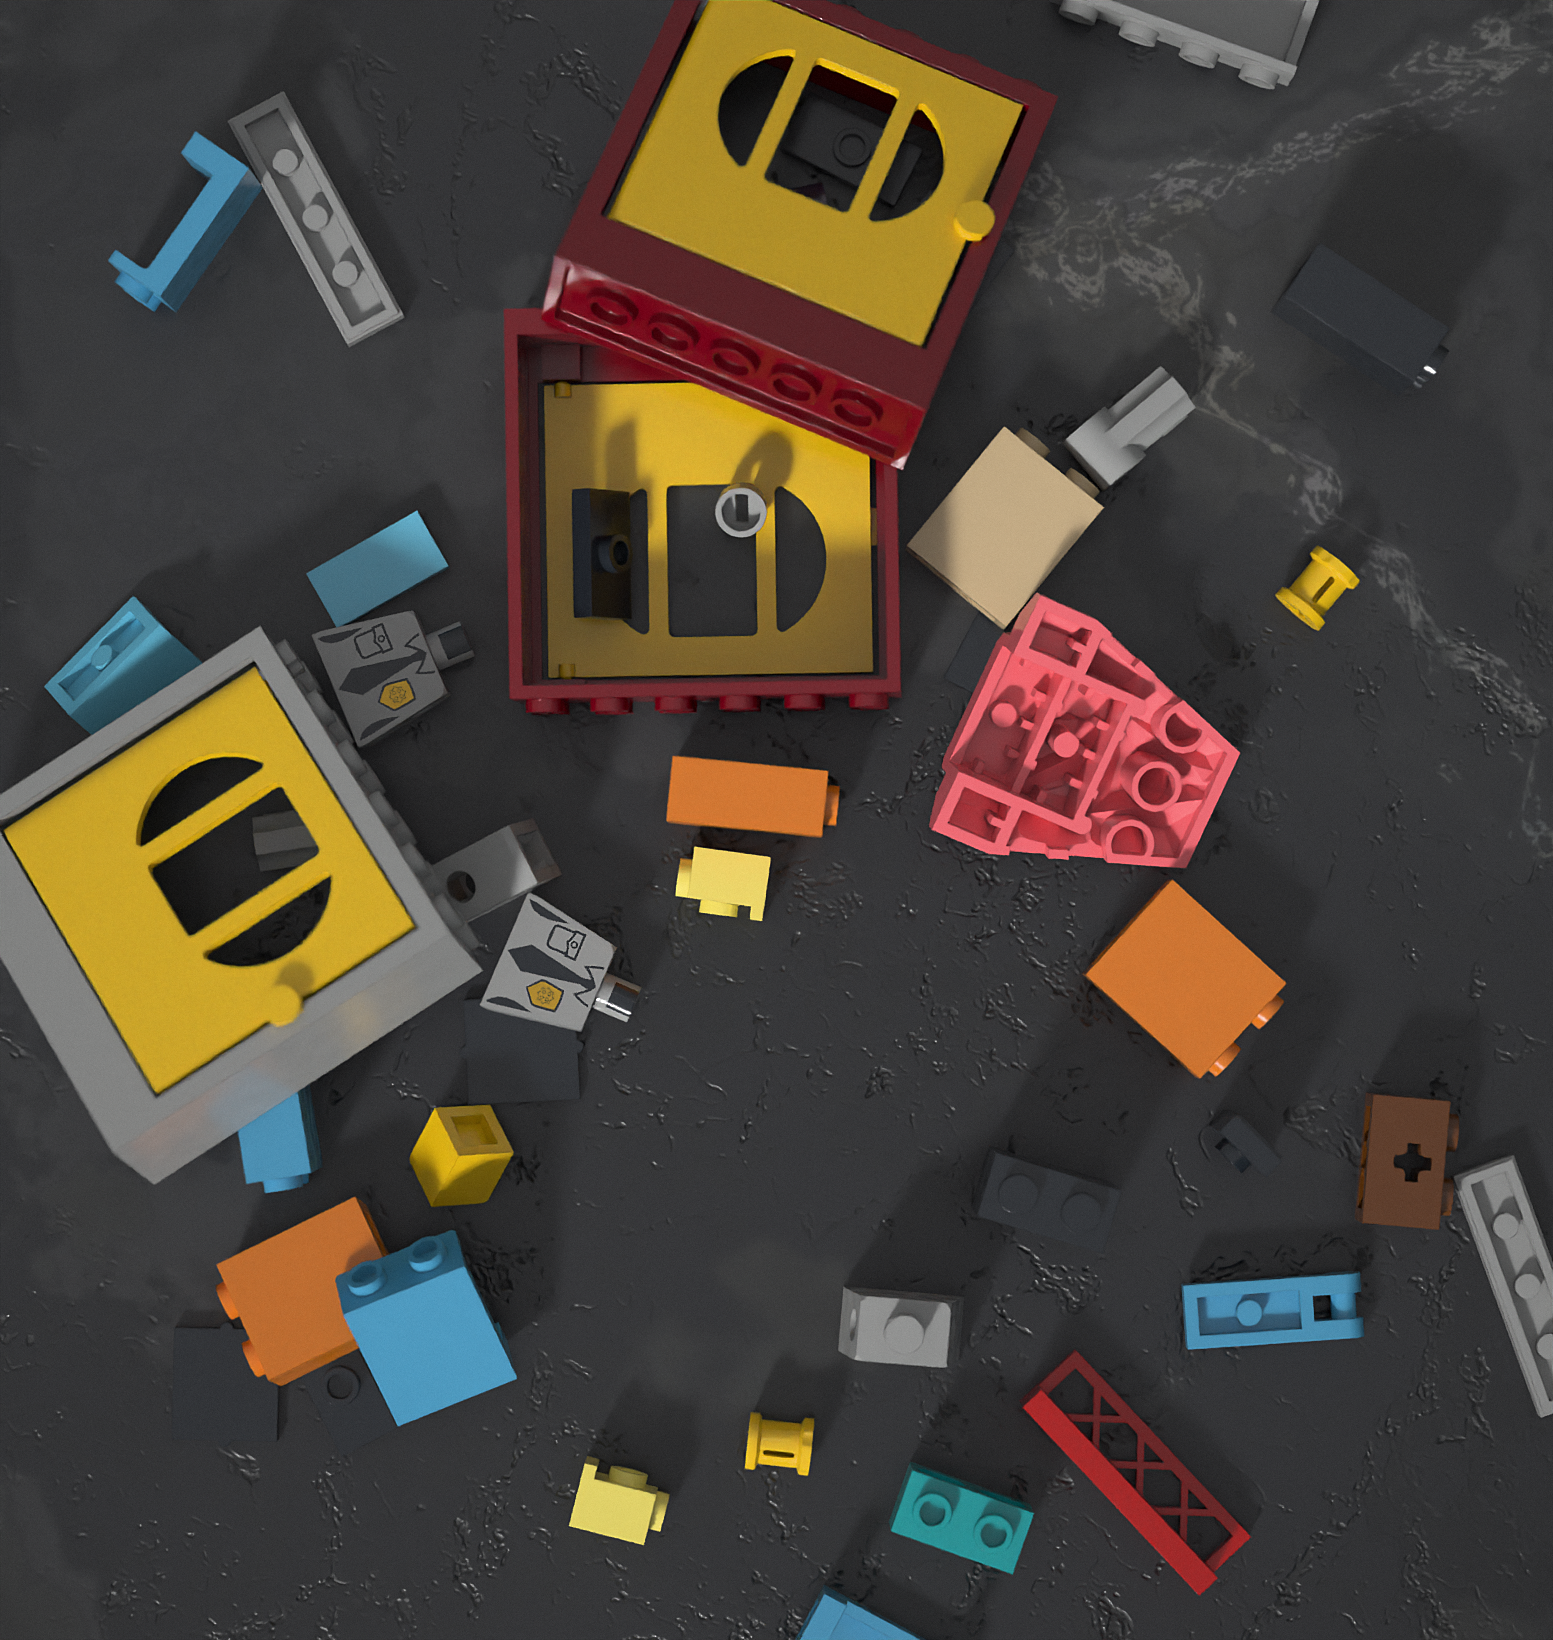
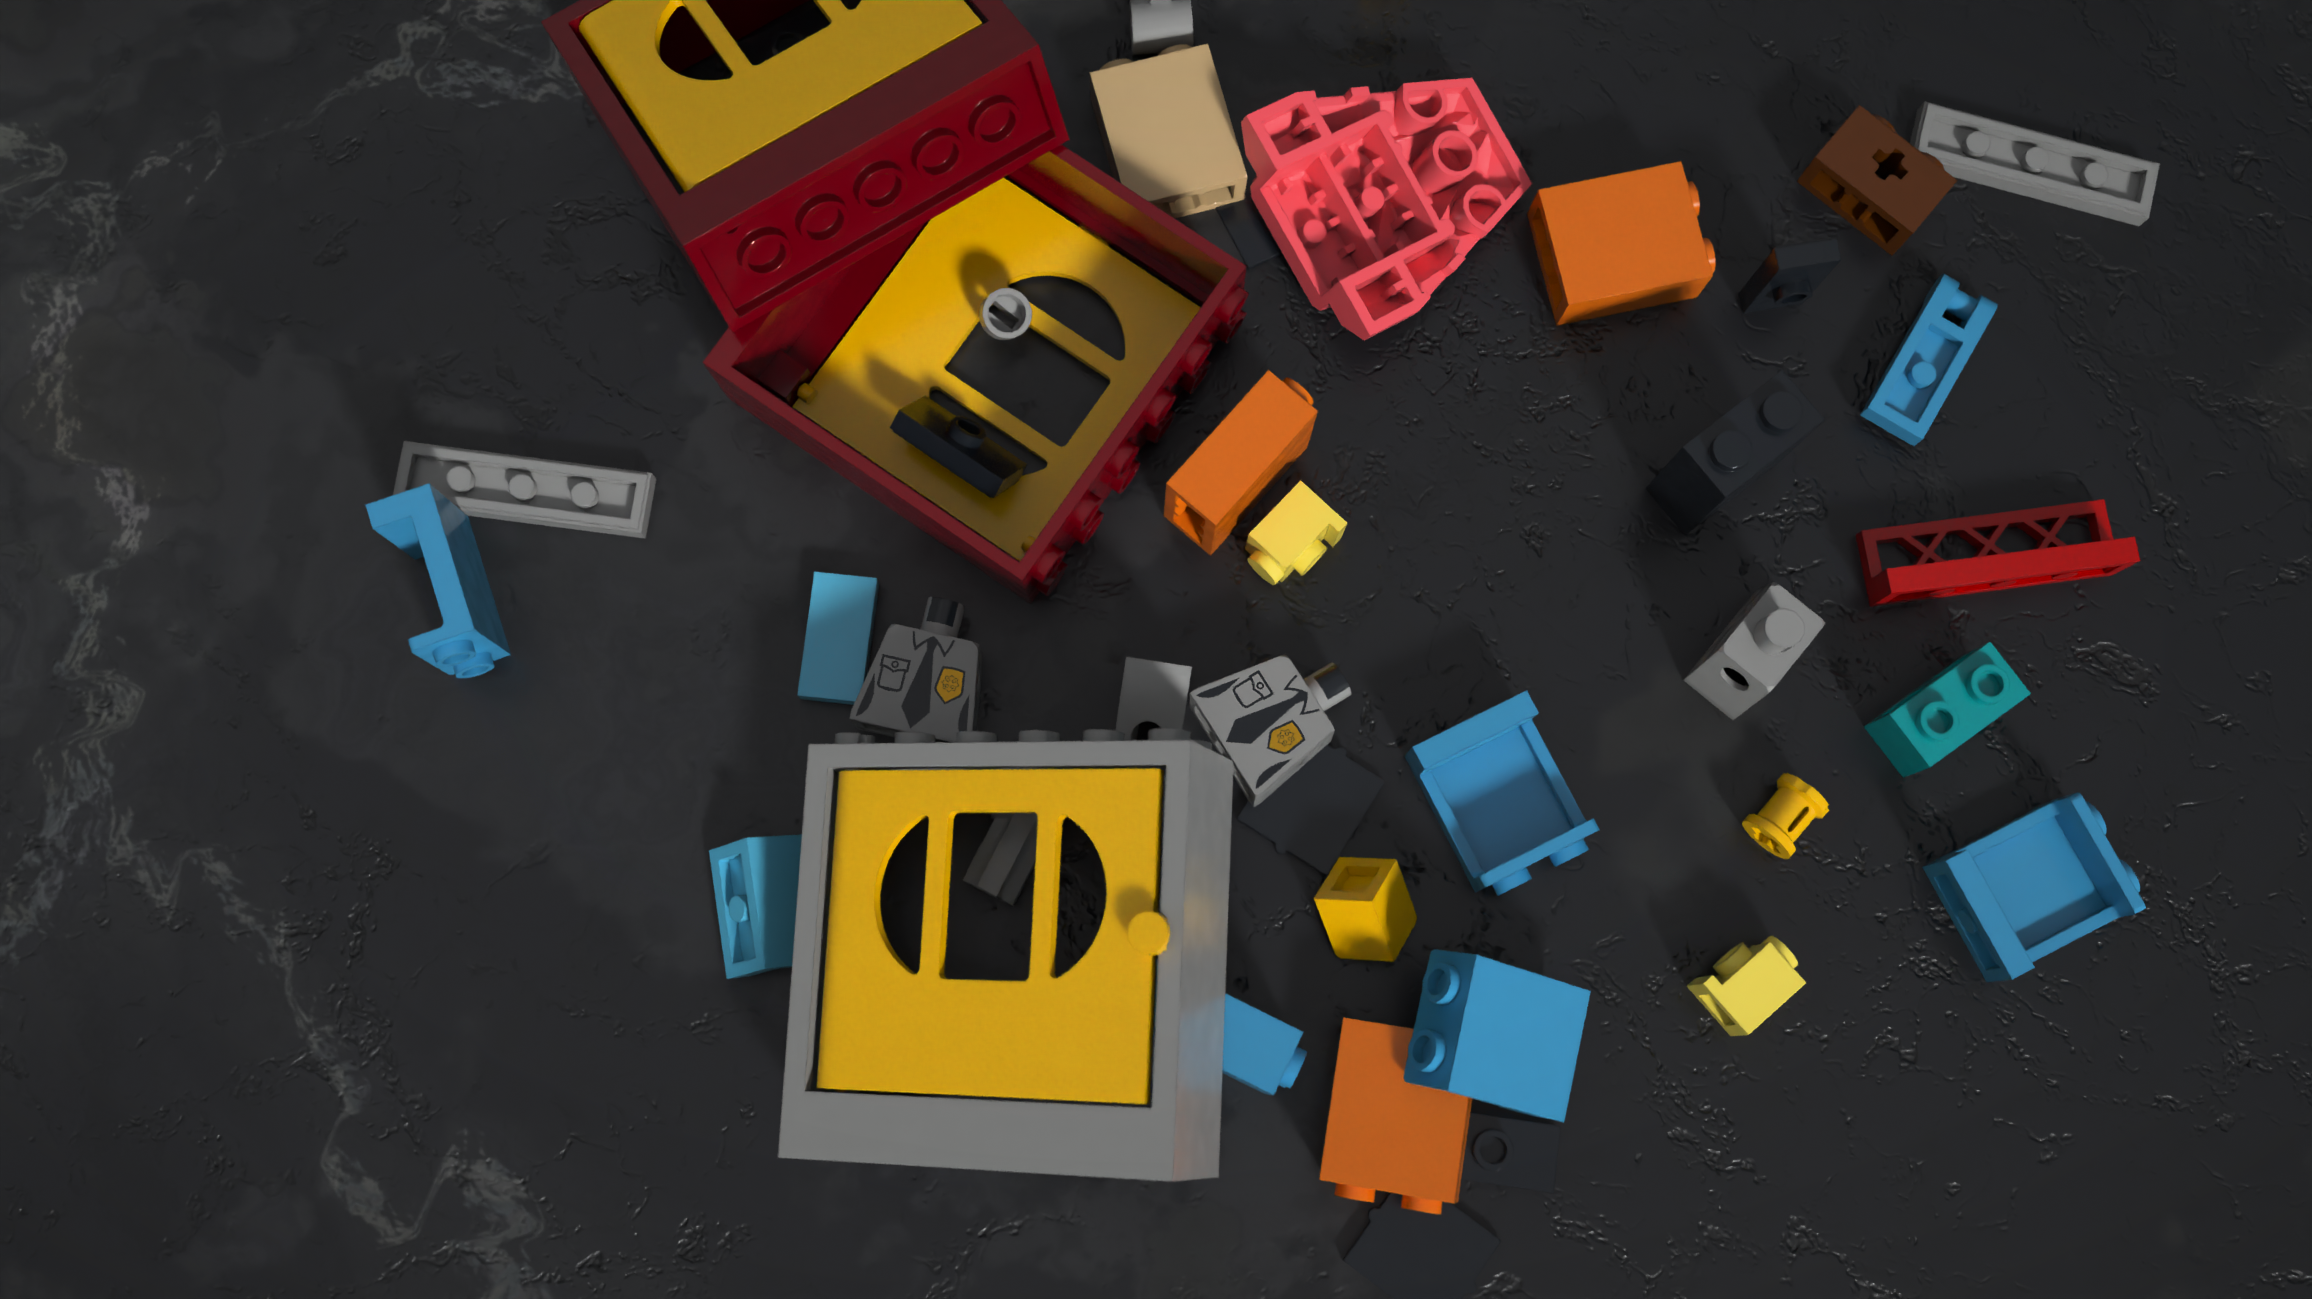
camera: 60 degrees left, 10 degrees down
(631, 1202) = (1500, 795): none -> dark azure panel

